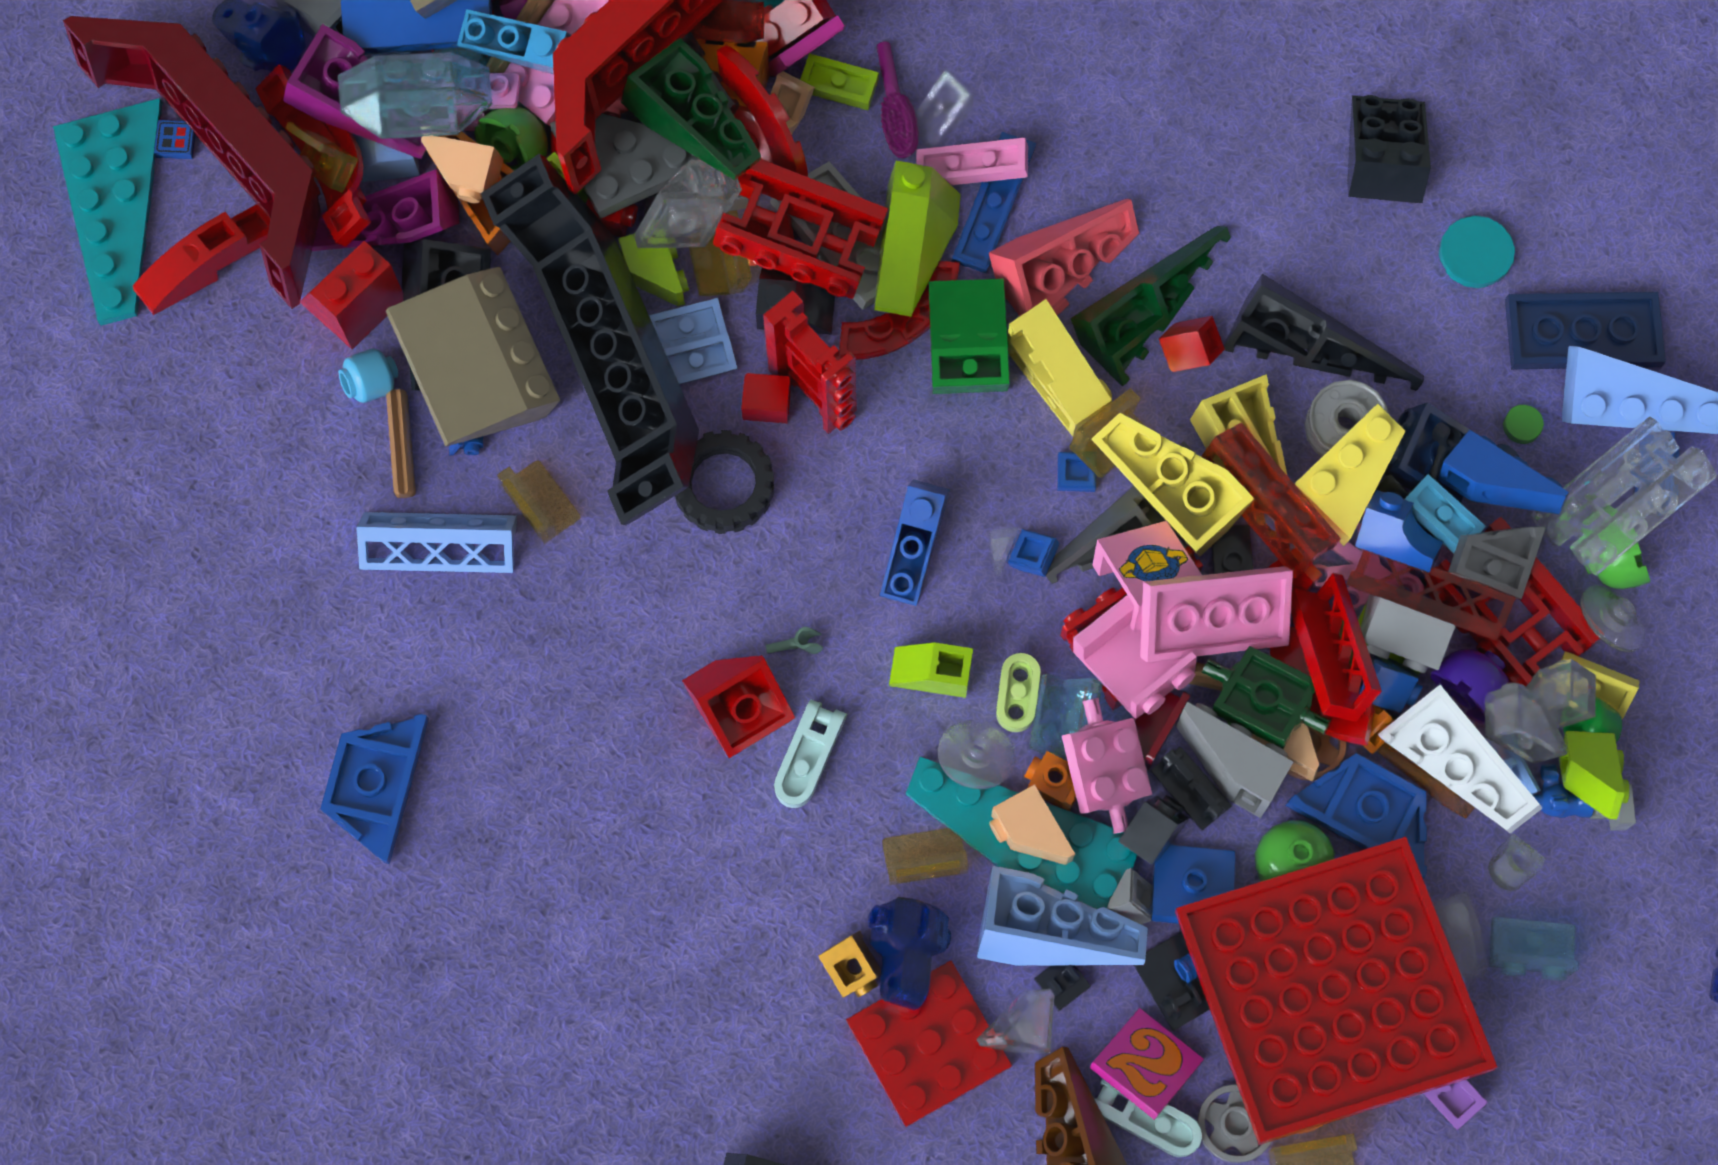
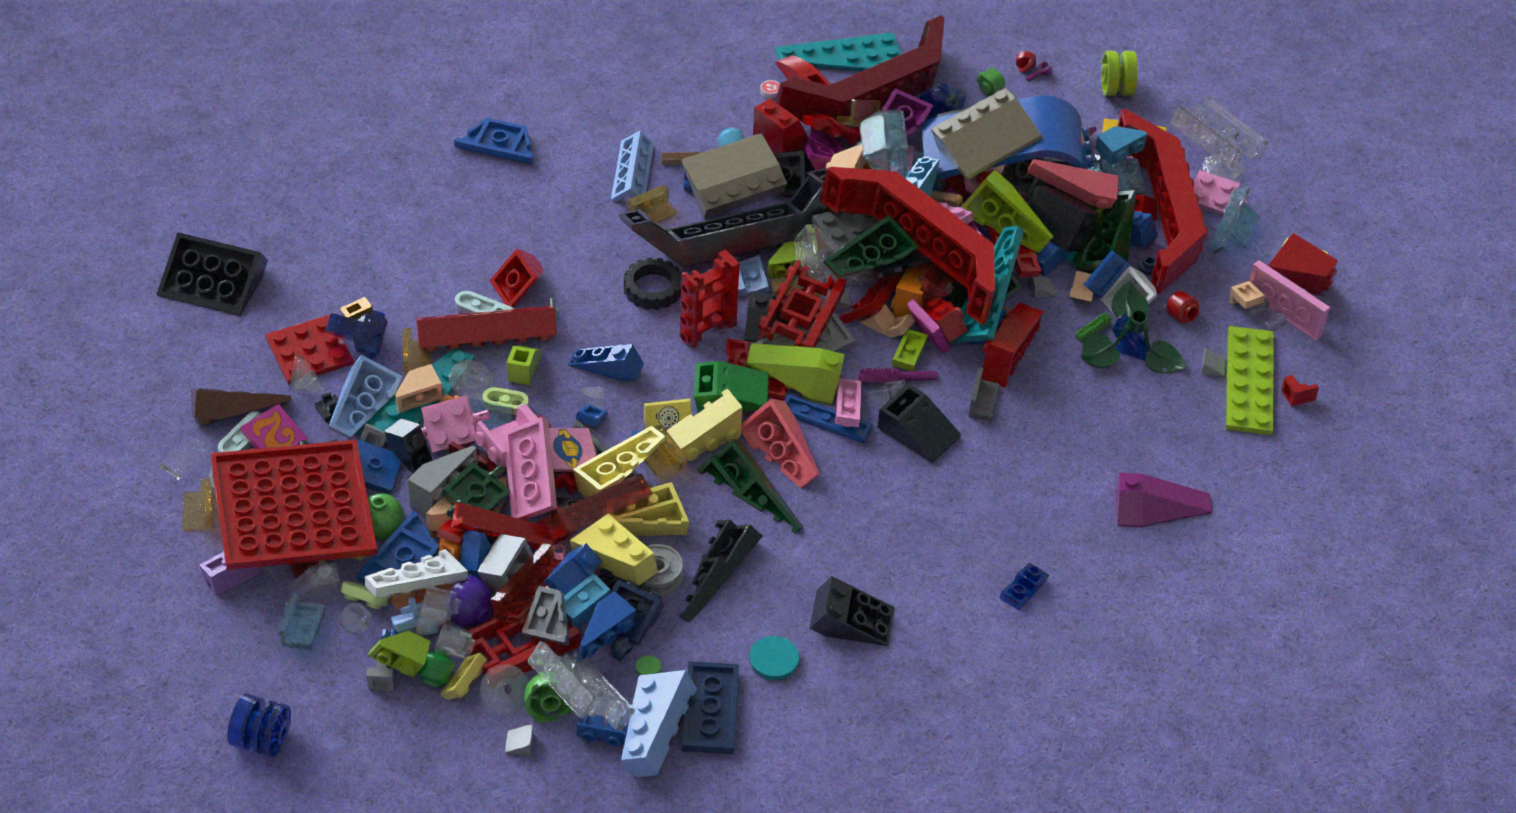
camera: 90 degrees right, 25 degrees down
(210, 324) = (770, 88): none -> tile
(766, 109) = (862, 298): red tile -> none
(867, 739) = (486, 326): none -> red brick
(1005, 64) = (917, 423): none -> black slope
(1020, 435) = (666, 412): none -> light yellow slope
(1191, 344) = (719, 500): red panel -> none
(1456, 860) = (355, 591): none -> yellowish green plate
(1689, 591) = (519, 740): none -> slope

